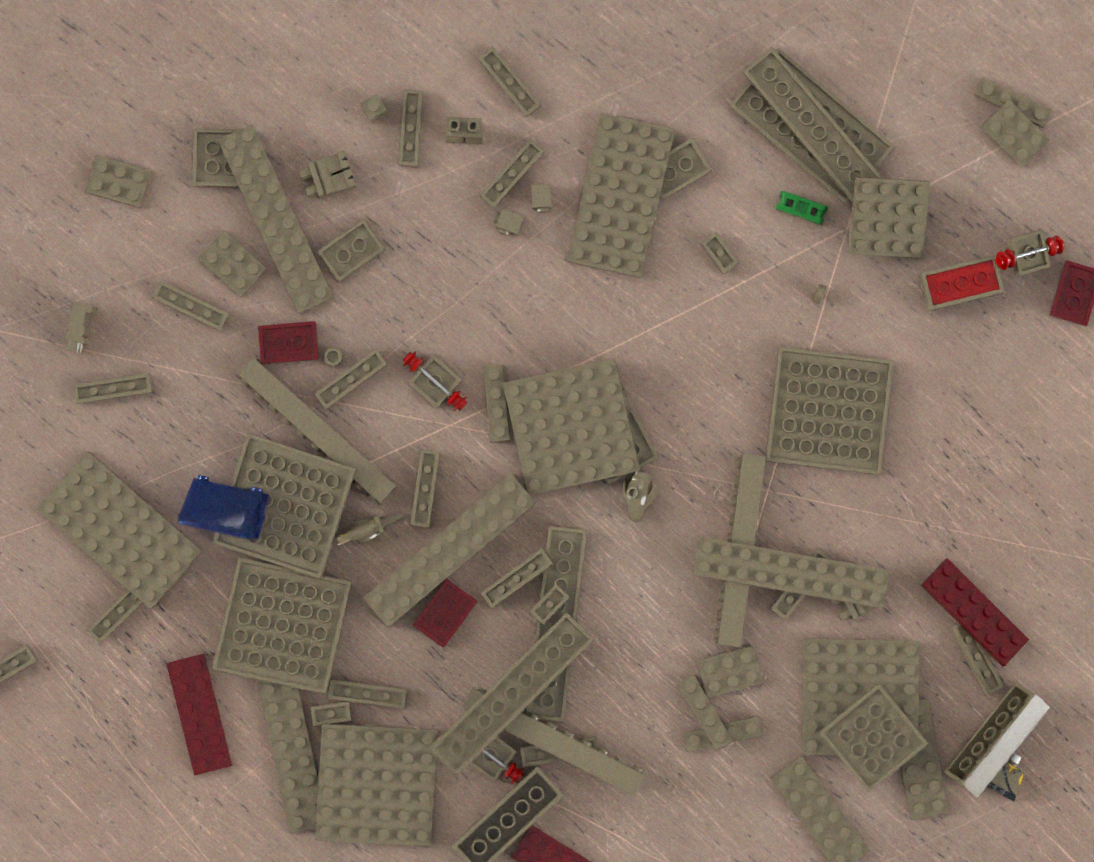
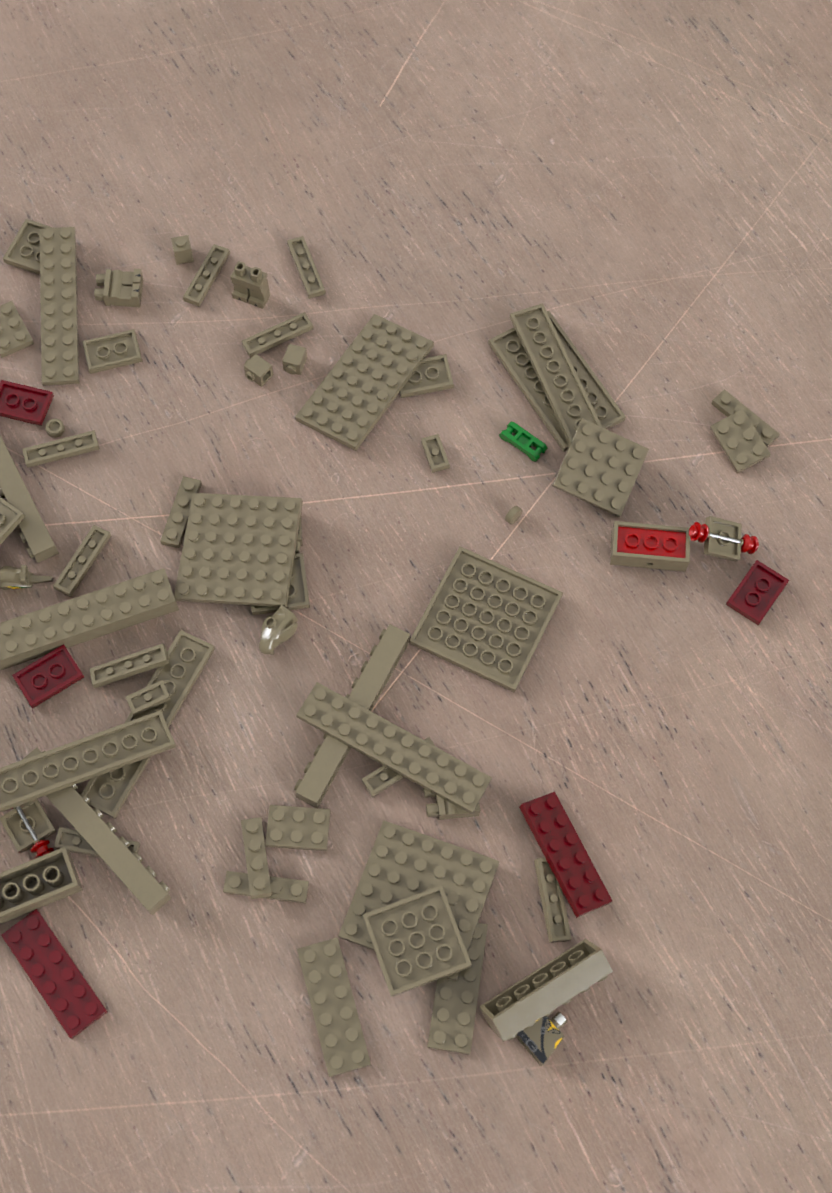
camera: 20 degrees right, 20 degrees down
(434, 381) = (134, 474): dark tan plate -> none

